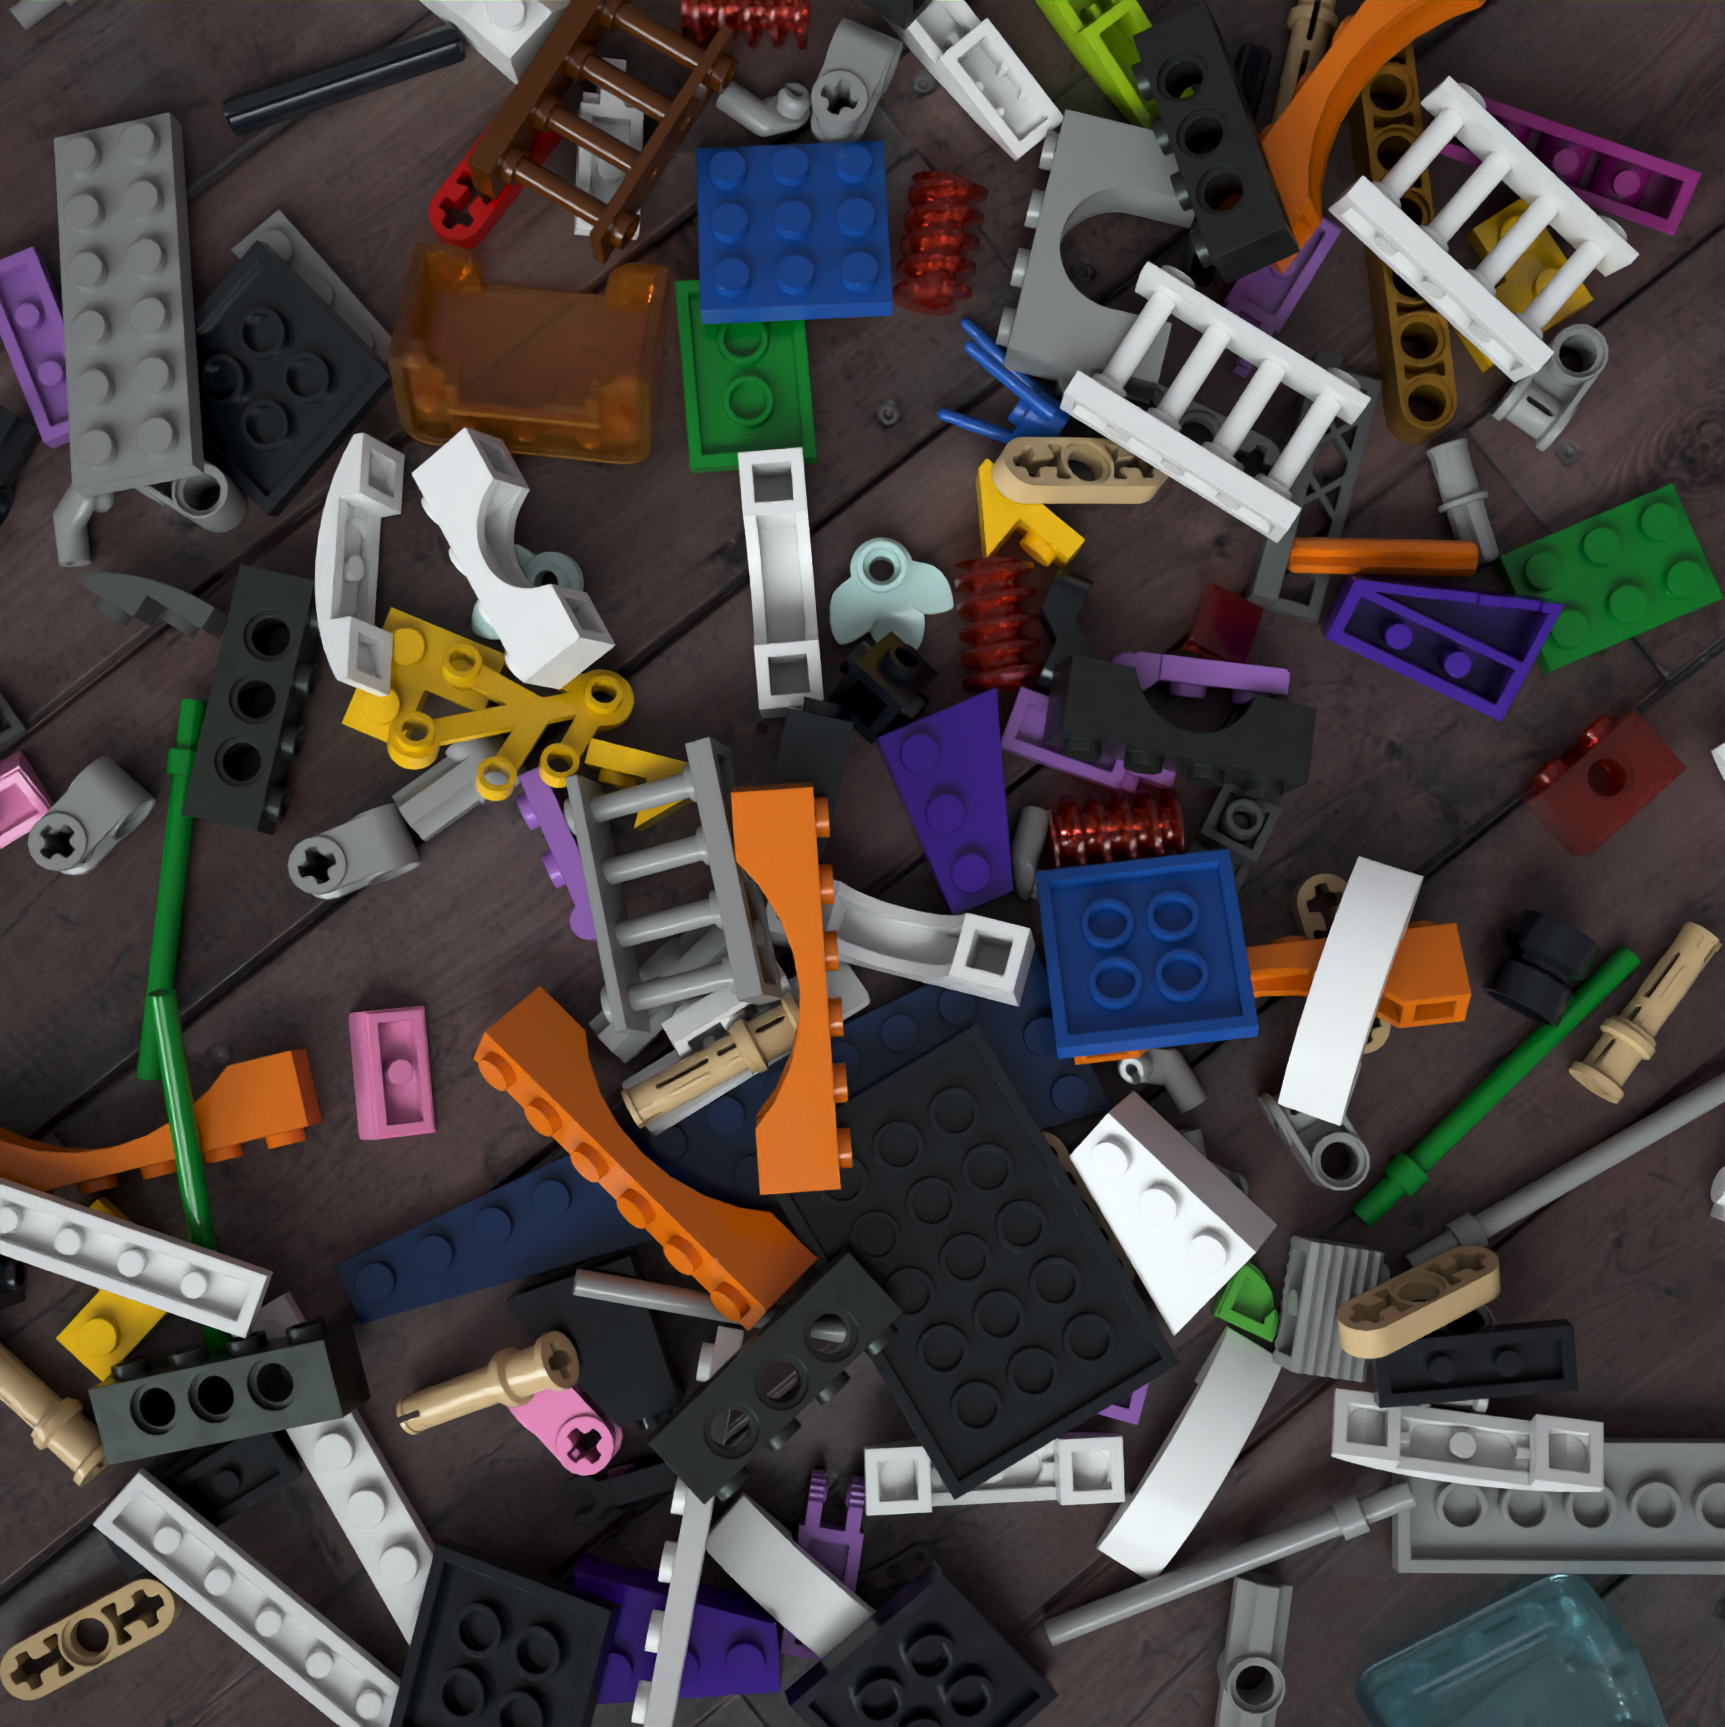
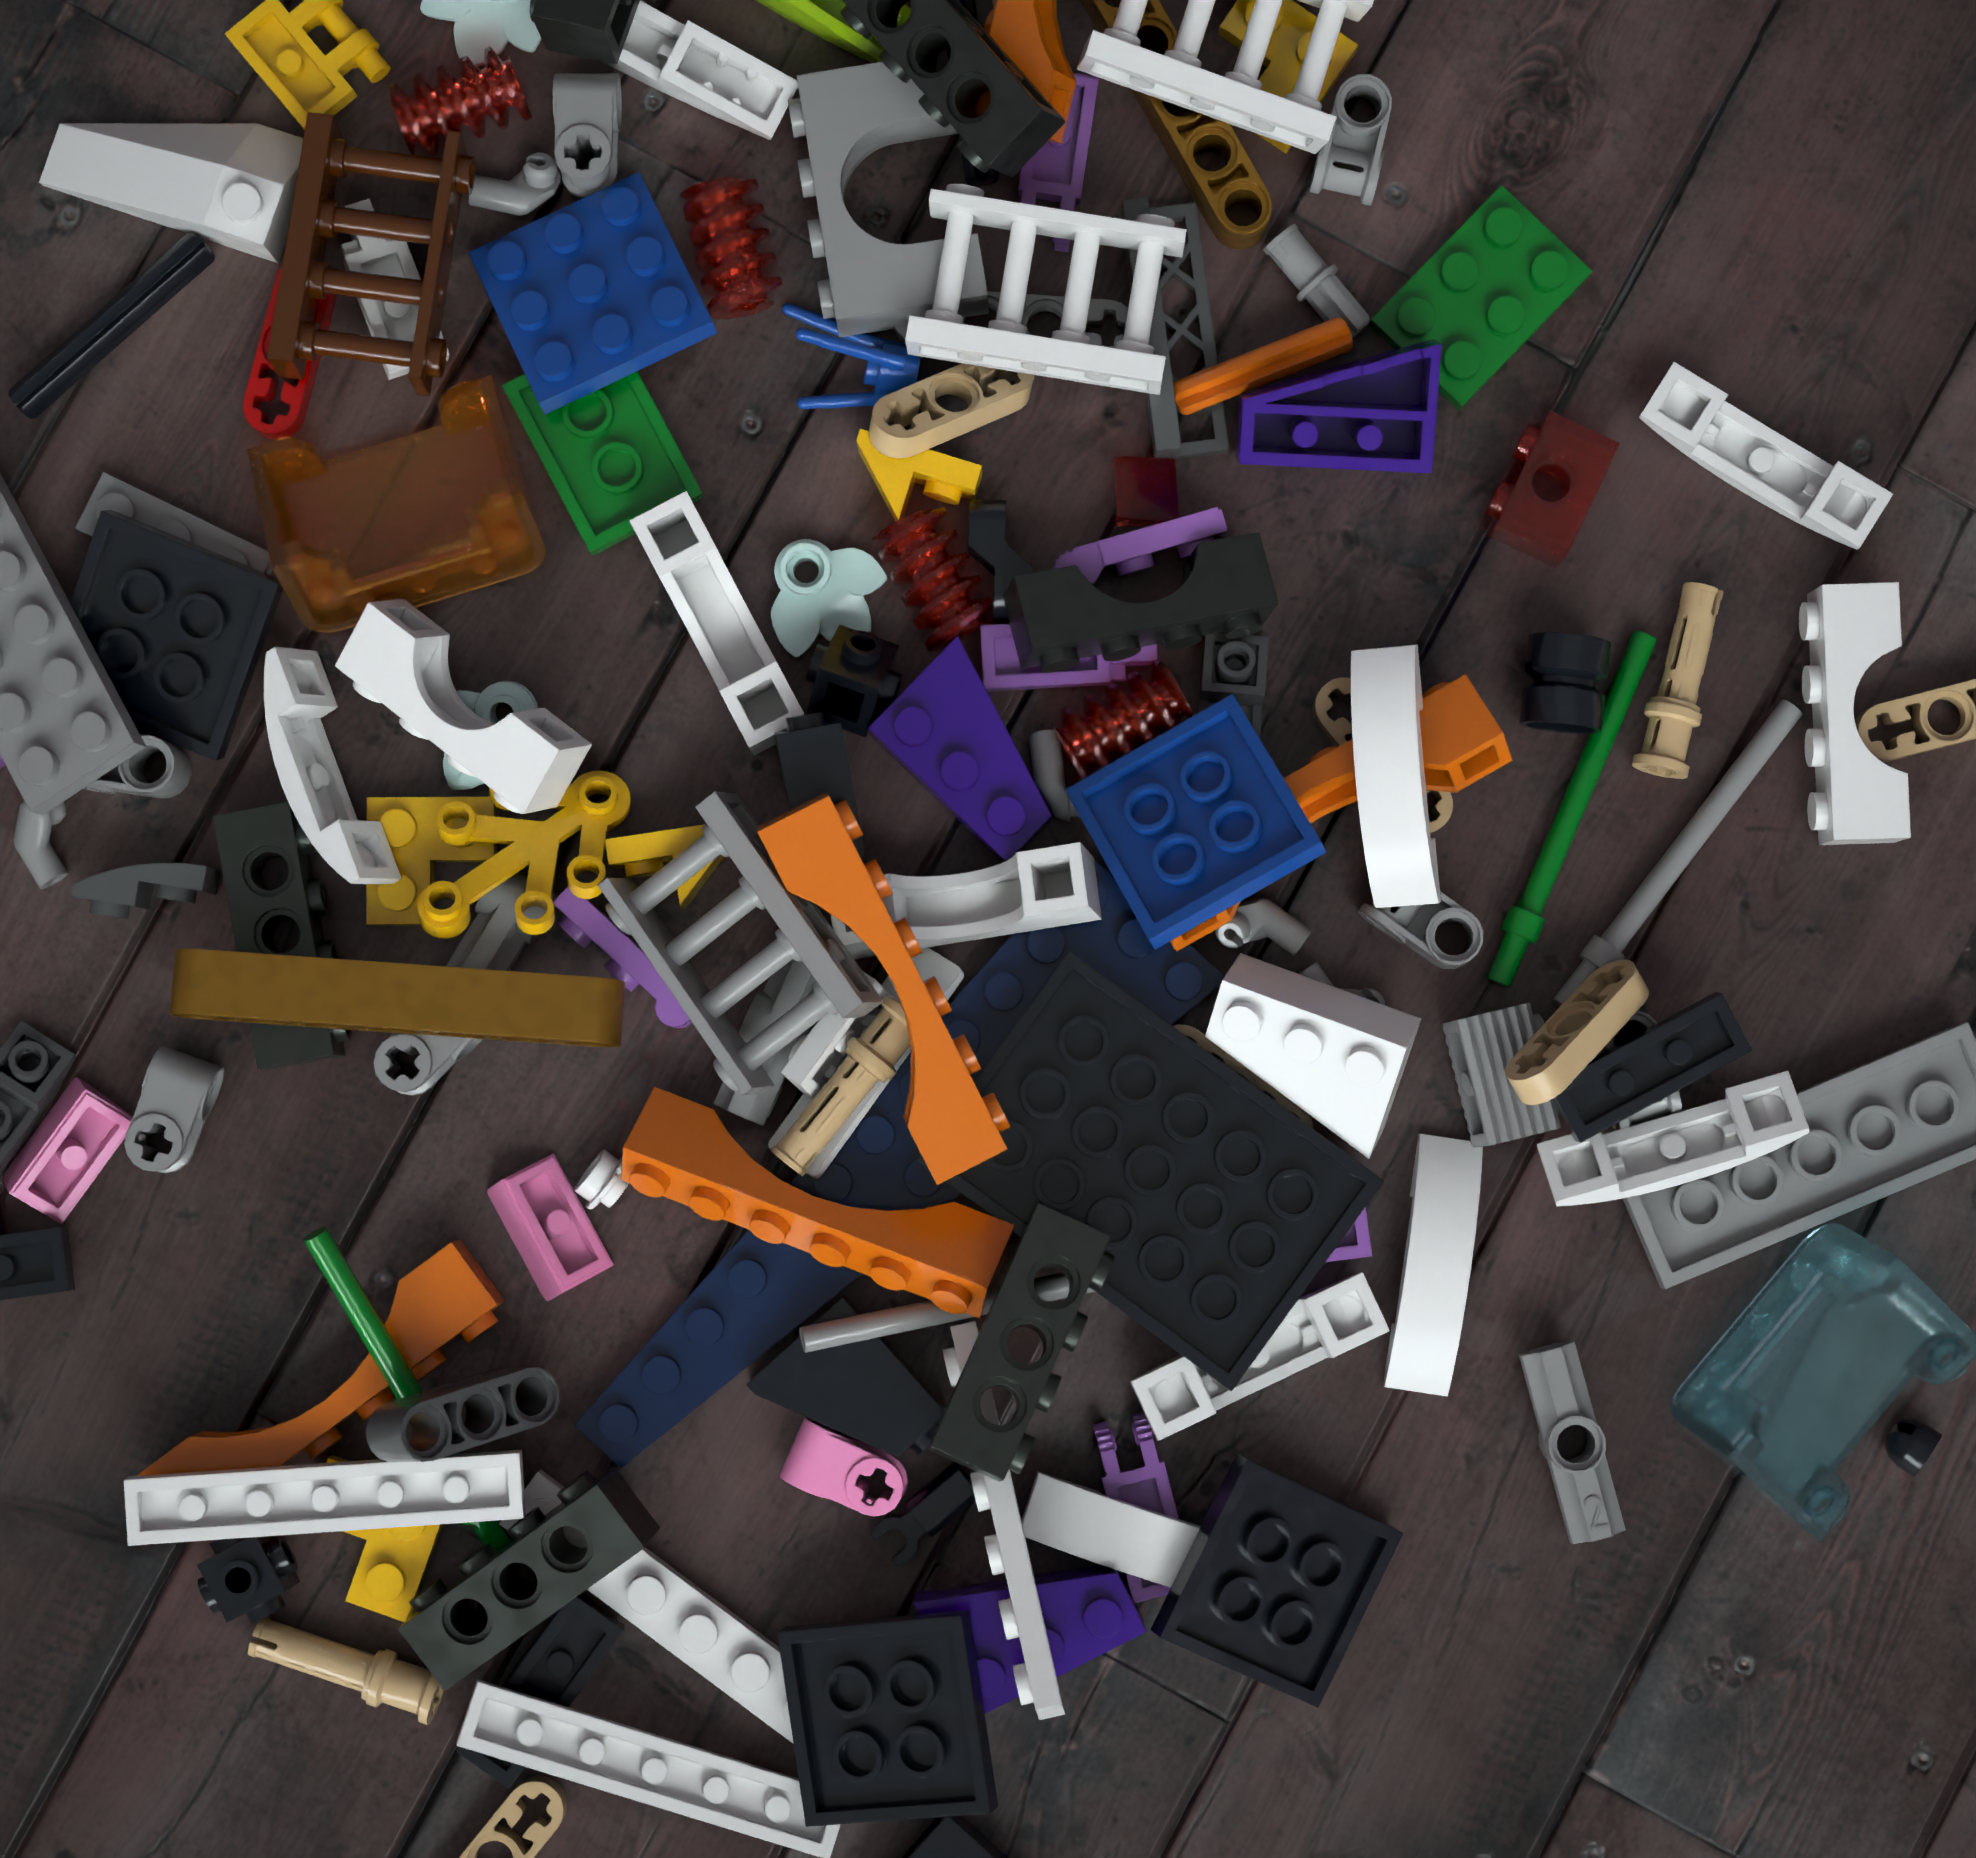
camera: 20 degrees left, 0 degrees up
(172, 878) = (281, 1173): green bar -> none
(208, 1202) = (438, 1421): none -> dark grey beam
(335, 803) = (397, 998): none -> pearl gold beam
(455, 1051) = (602, 1181): none -> white plate
(508, 1379) = (778, 1455): tan pin -> none
(1248, 1303) = (1427, 1102): bright green tile -> none
(1347, 1518) = (1597, 1258): light grey bar -> none

